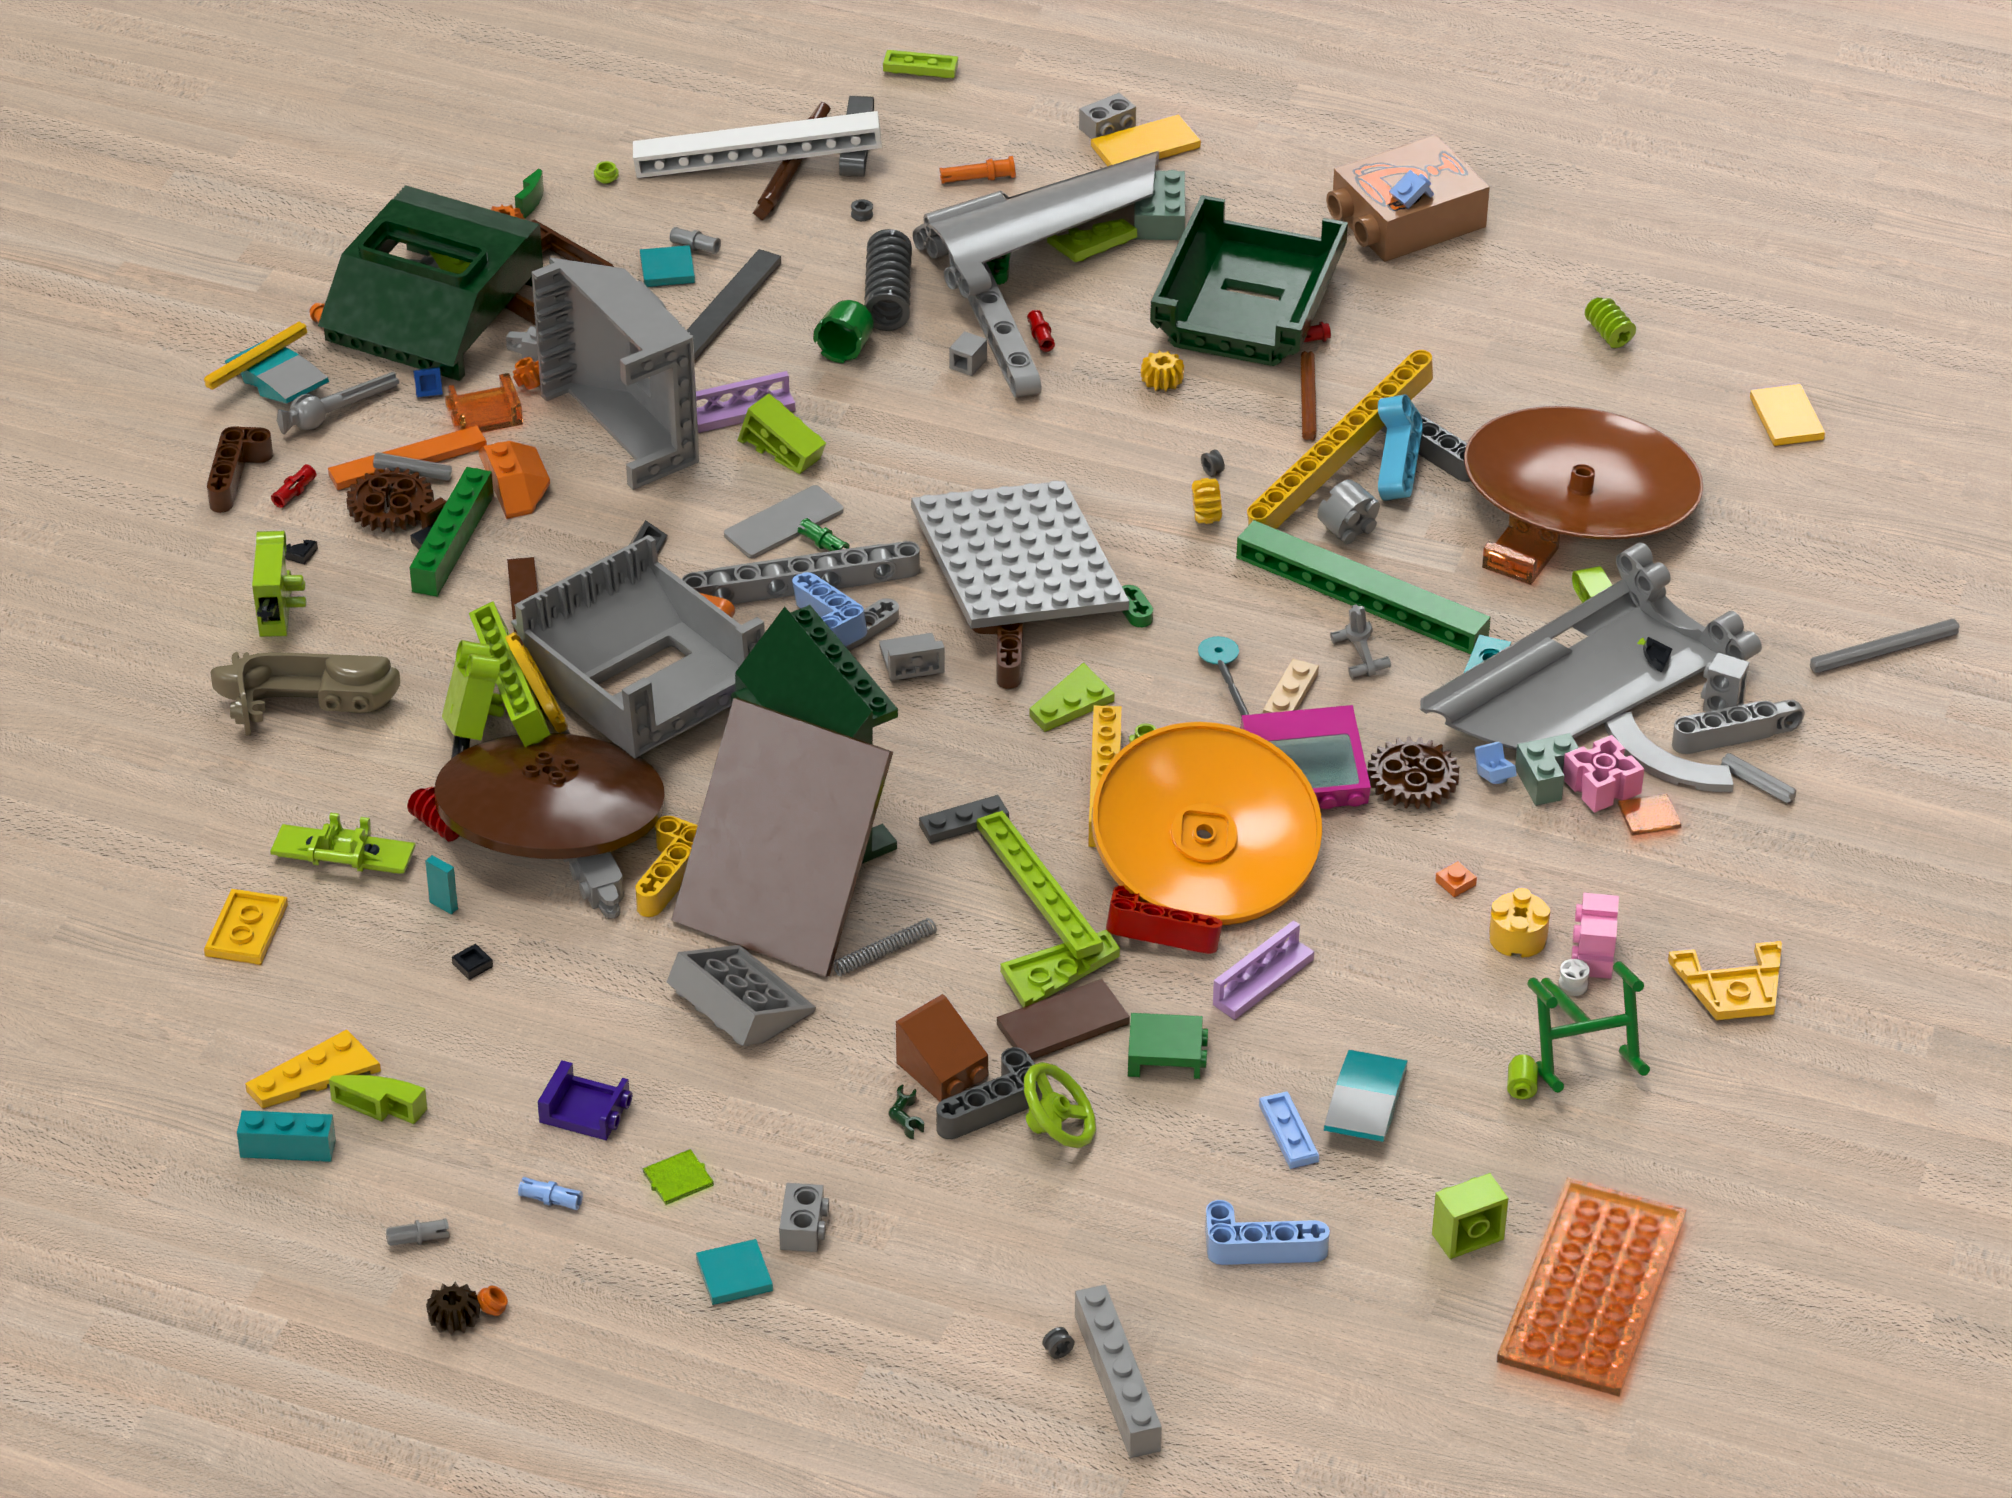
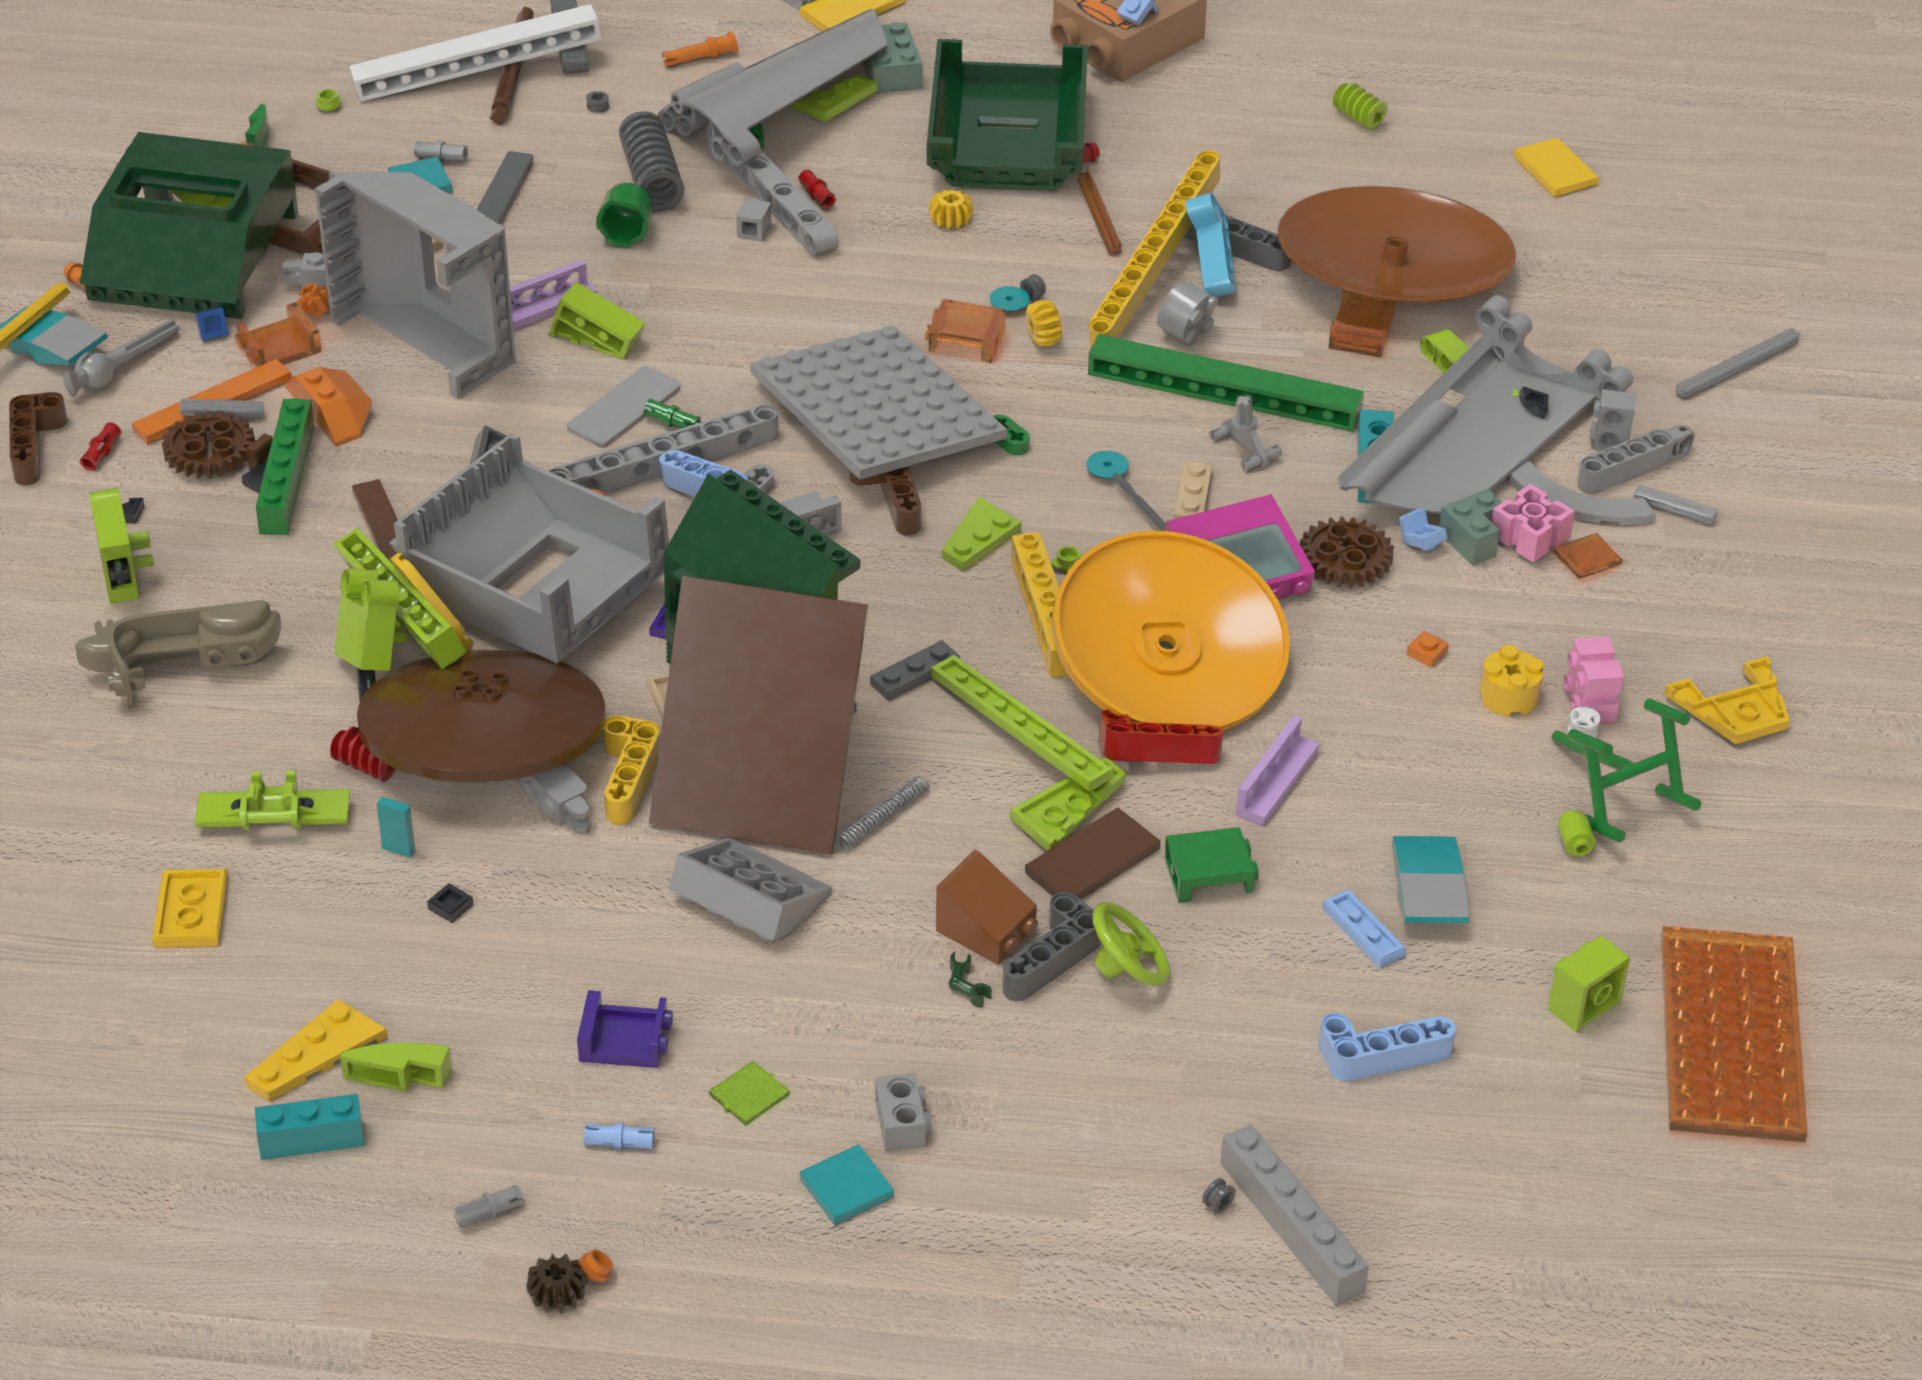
camera: 15 degrees left, 0 degrees up
(1134, 493) = (968, 326): none -> clear orange panel
(1186, 470) = (1009, 298): none -> teal piece

